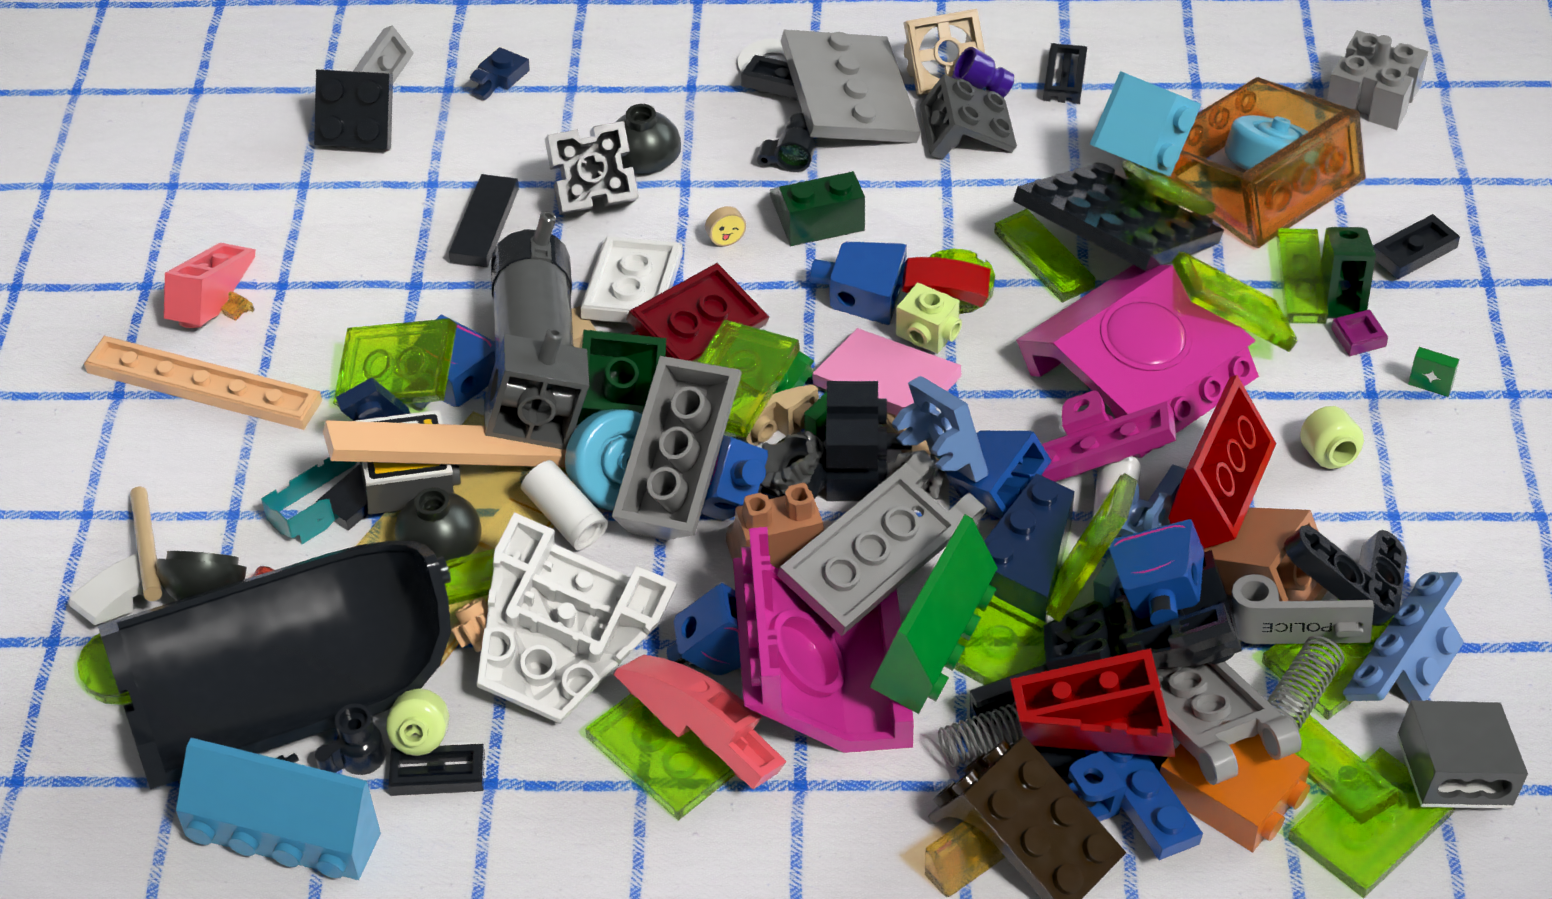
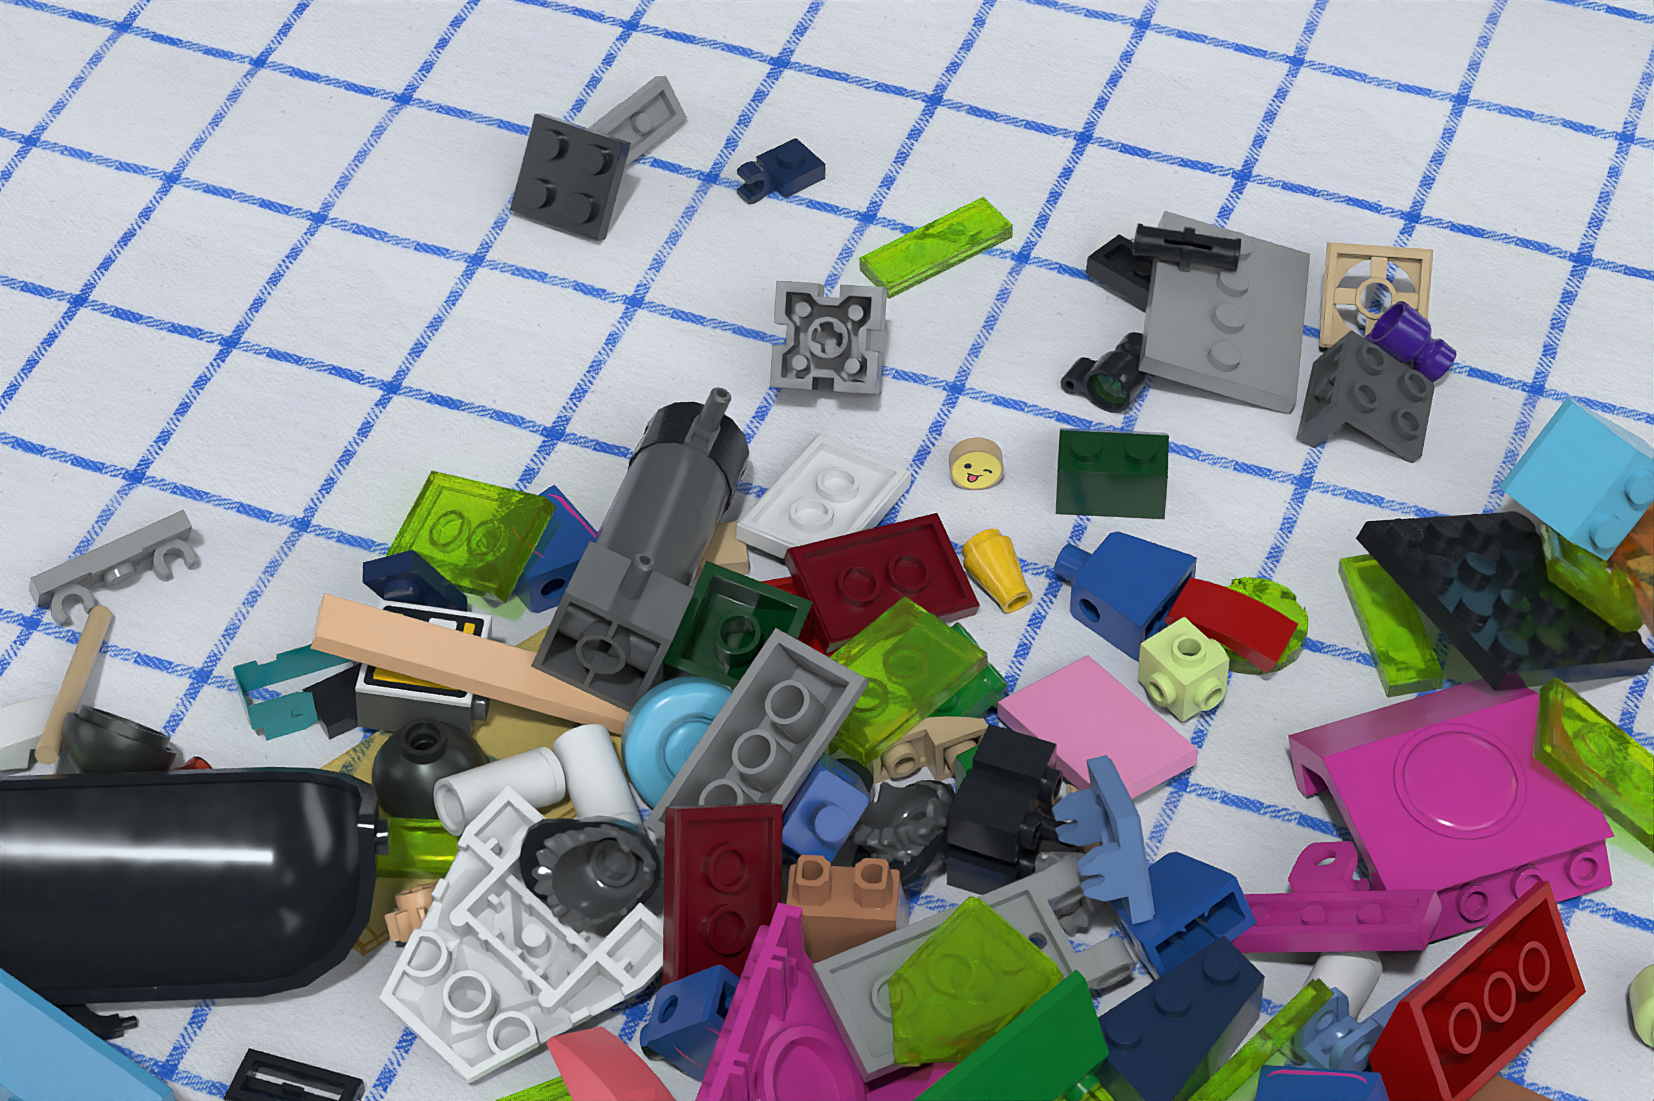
camera: 20 degrees right, 0 degrees up
(134, 457) = (113, 564): none -> light grey plate
(201, 285) = (293, 360): coral slope -> none
(204, 382) = (242, 491): light nougat tile -> none
(236, 306) = (323, 400): clear yellow piece -> none
(357, 746) = (207, 1032): black piece -> none
(417, 722) = (289, 1025): yellowish green head -> none
(482, 531) = (532, 774): none -> white pin
(484, 220) = (675, 366): black tile -> none
(593, 551) = (590, 867): none -> dark grey hair
(638, 86) = (936, 247): none -> clear neon green tile
(651, 140) = (925, 317): pearl dark grey piece -> none
(689, 537) = (718, 884): none -> dark red tile
(770, 289) = (996, 568): none -> yellow cone
(812, 48) = (1186, 247): none -> black pin
(888, 552) = (964, 986): none -> clear neon green tile
(1063, 90) = (1522, 394): black tile -> none

